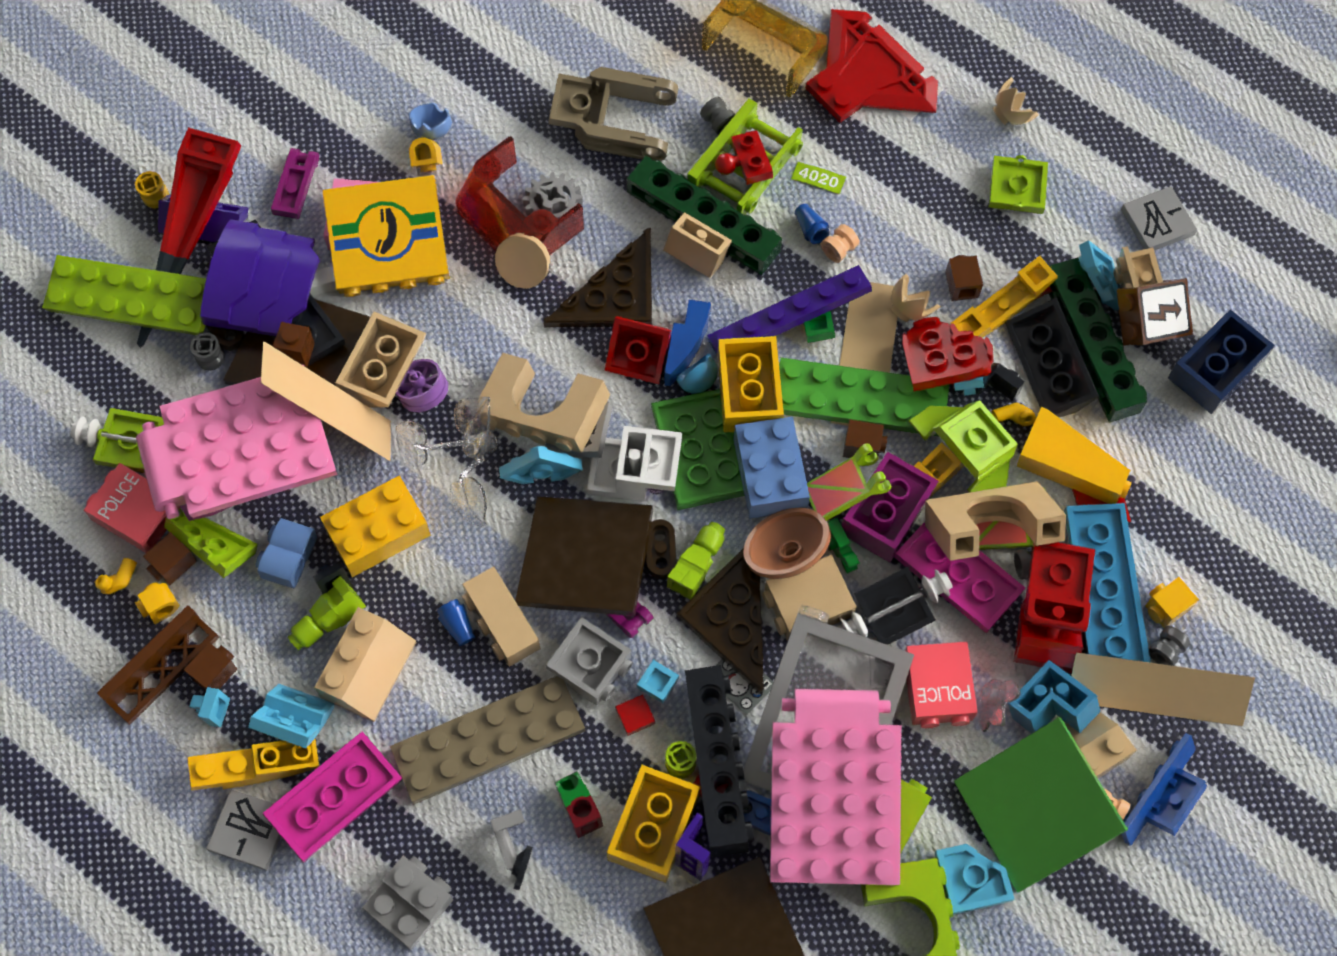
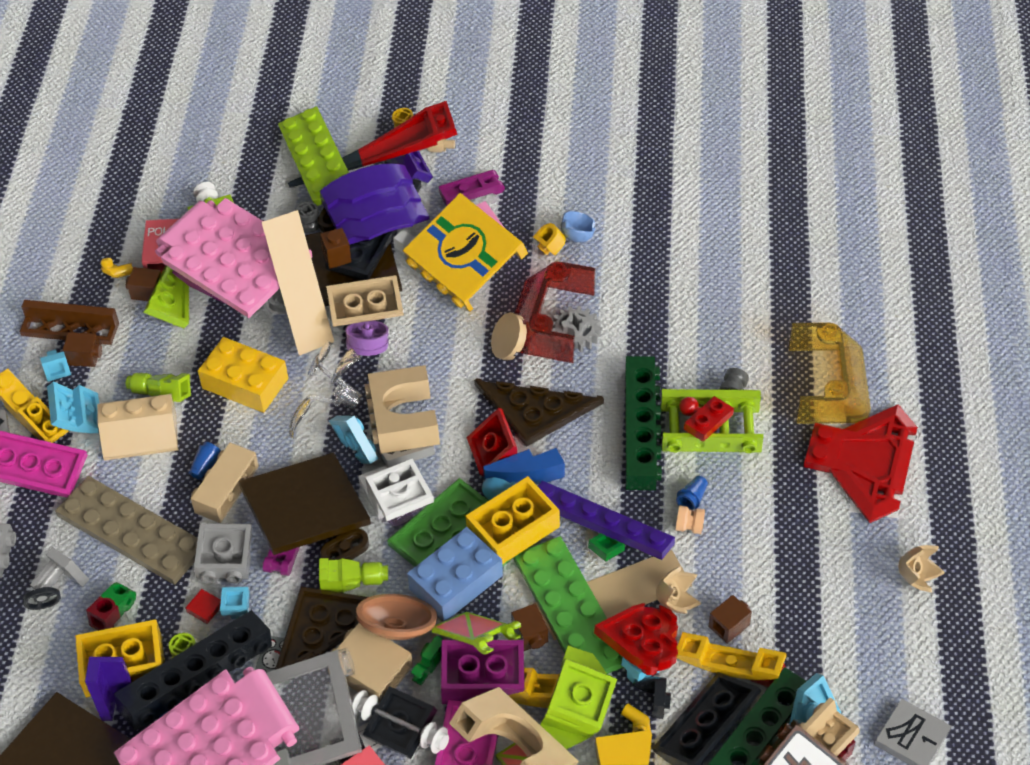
camera: 60 degrees right, 15 degrees down
(157, 602) = (110, 295): yellow plate -> none
(286, 553) = (190, 340): medium blue brick -> none
(329, 574) = (190, 368): black tile -> none
(584, 104) = (669, 300): dark tan plate -> none
(697, 245) = (608, 429): tan brick -> none
(818, 177) = (742, 479): lime sticker -> none
(1018, 184) = (851, 612): lime plate -> none

